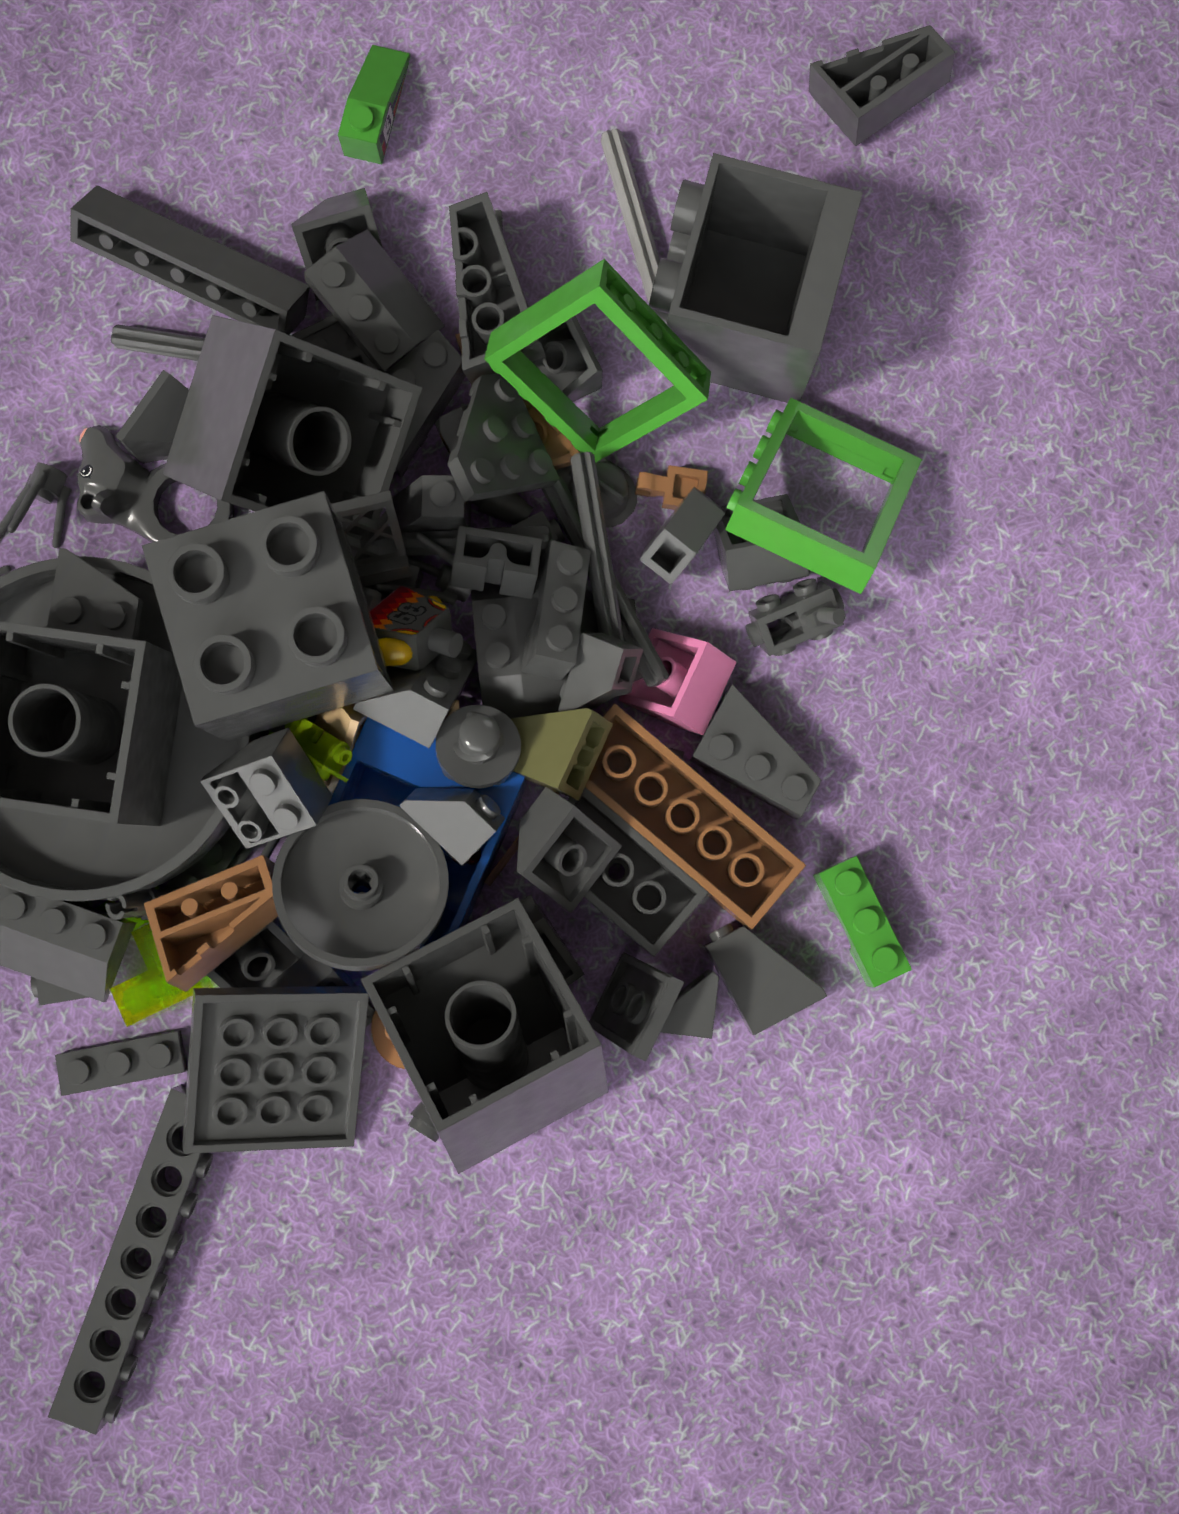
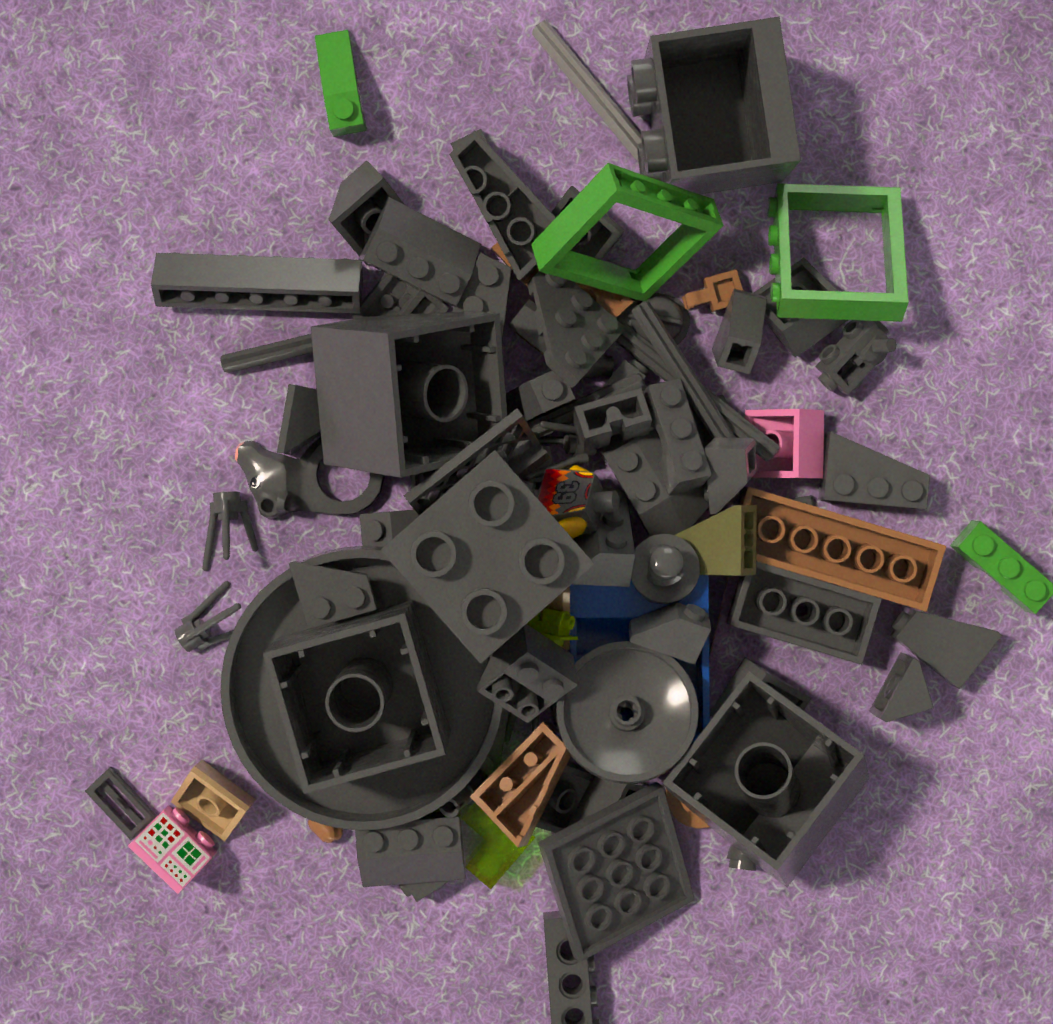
camera: 20 degrees left, 5 degrees up
(121, 1063) = (492, 916): dark grey plate -> none
(562, 849) = (760, 617): dark grey slope -> none
(635, 1005) = (863, 707): dark grey tile -> none

